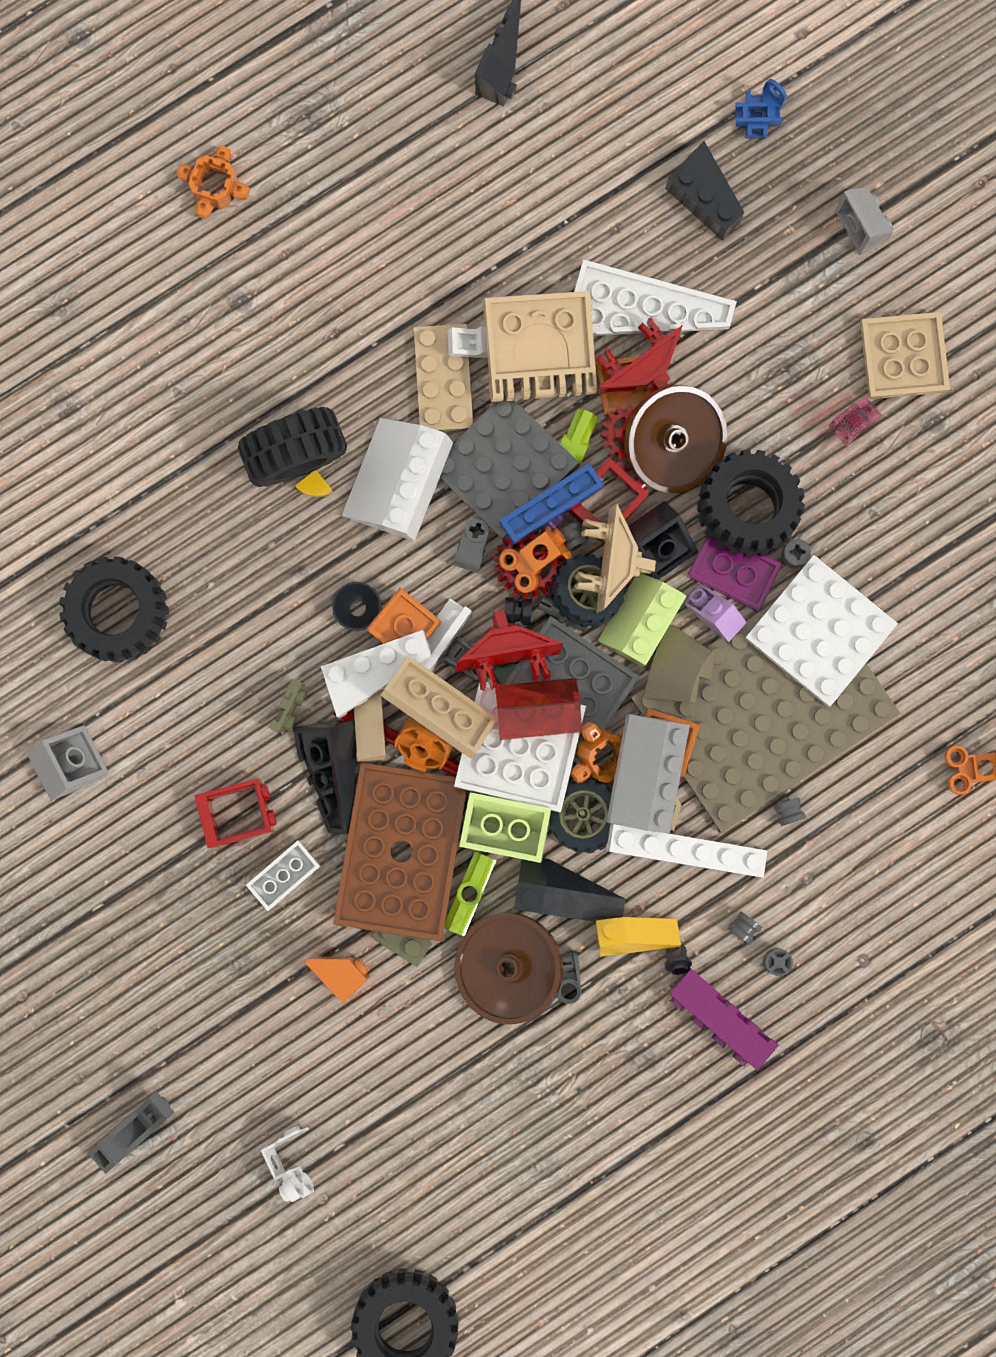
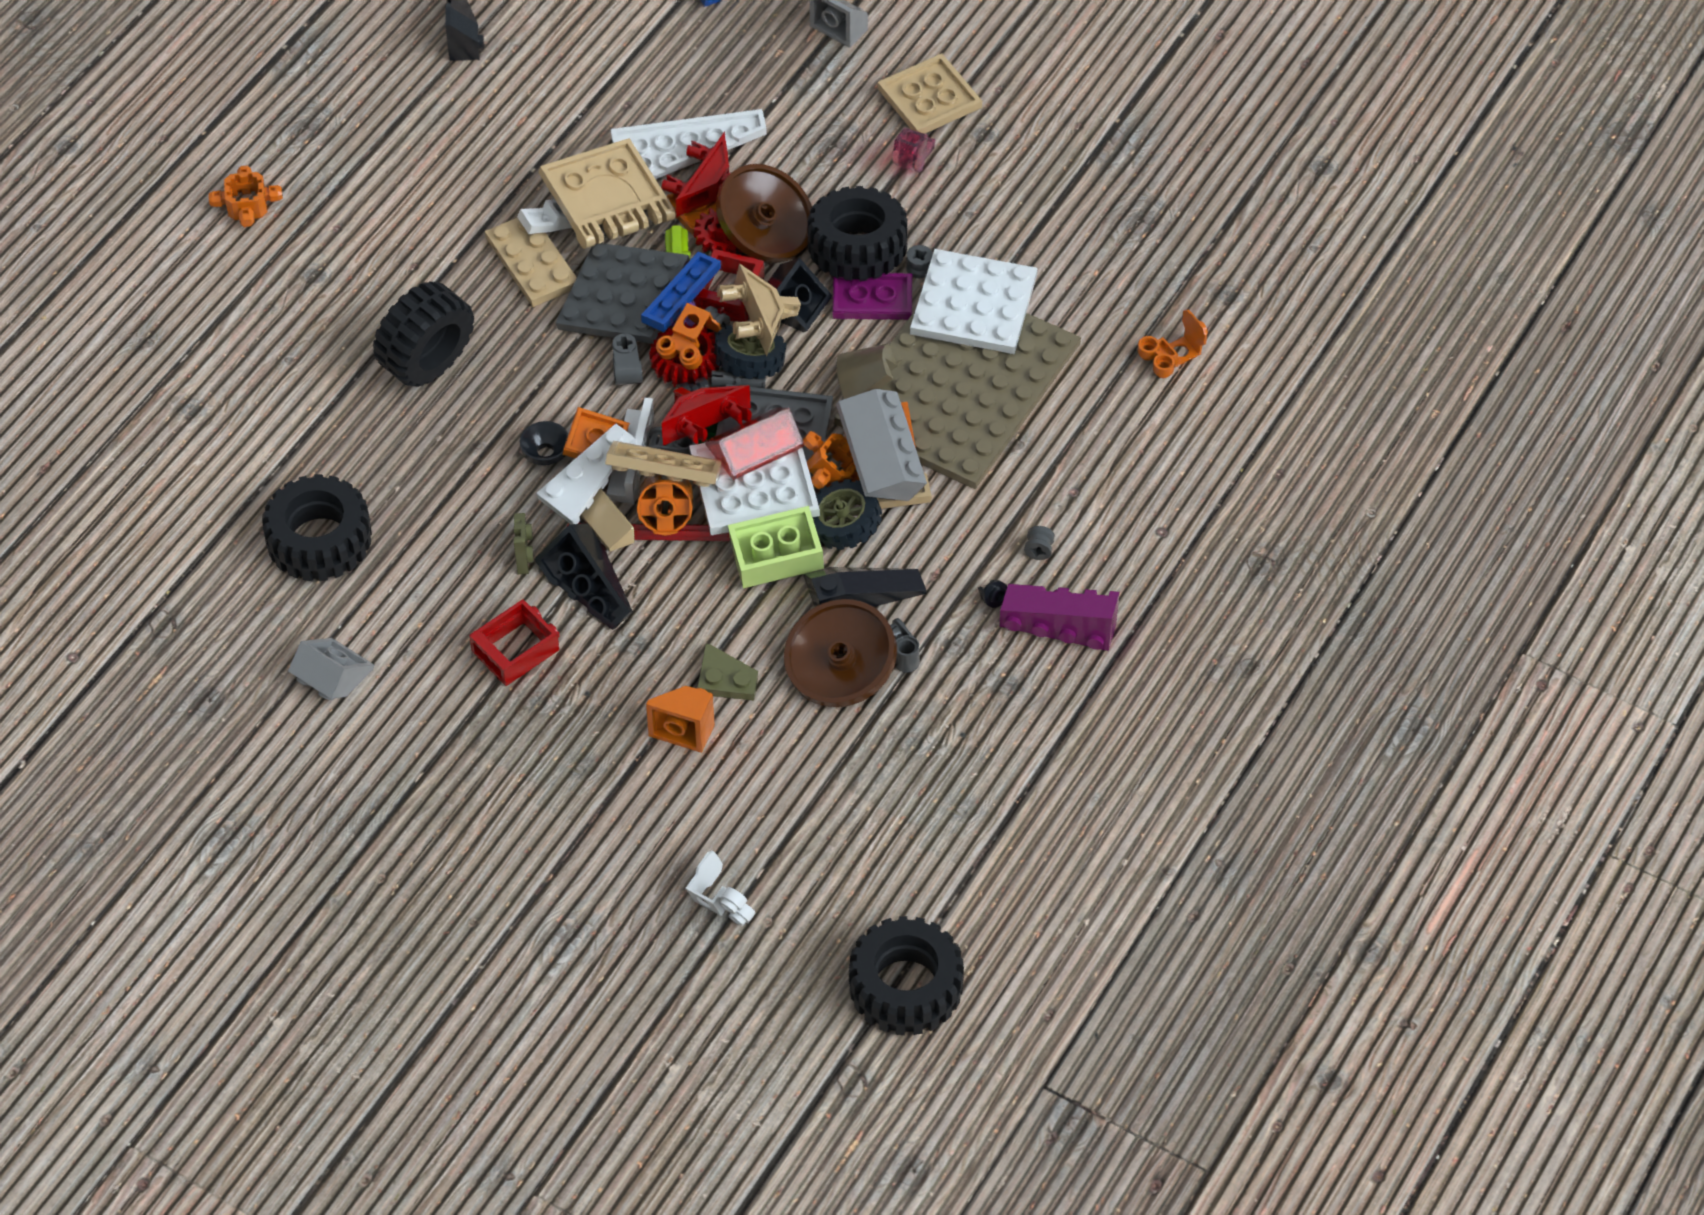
camera: 25 degrees left, 30 degrees down
(131, 1132) = (553, 930): dark grey arch -> none
(283, 875) = (587, 673): white piece -> none
(314, 485) = (455, 376): yellow tile -> none
(396, 895) = (686, 572): dark orange plate -> none
(398, 477) = (530, 335): white slope -> none
(461, 910) = (771, 617): lime piece -> none
(636, 935) = (939, 586): yellow slope -> none
(642, 619) = (812, 355): yellowish green slope -> none
(686, 850) = (951, 500): white plate -> none
(705, 192) = (692, 47): black wedge -> none
(715, 612) = (873, 326): lavender slope -> none
(781, 965) = (1082, 550): dark grey wheel -> none
(790, 811) = (1027, 442): dark grey wheel -> none

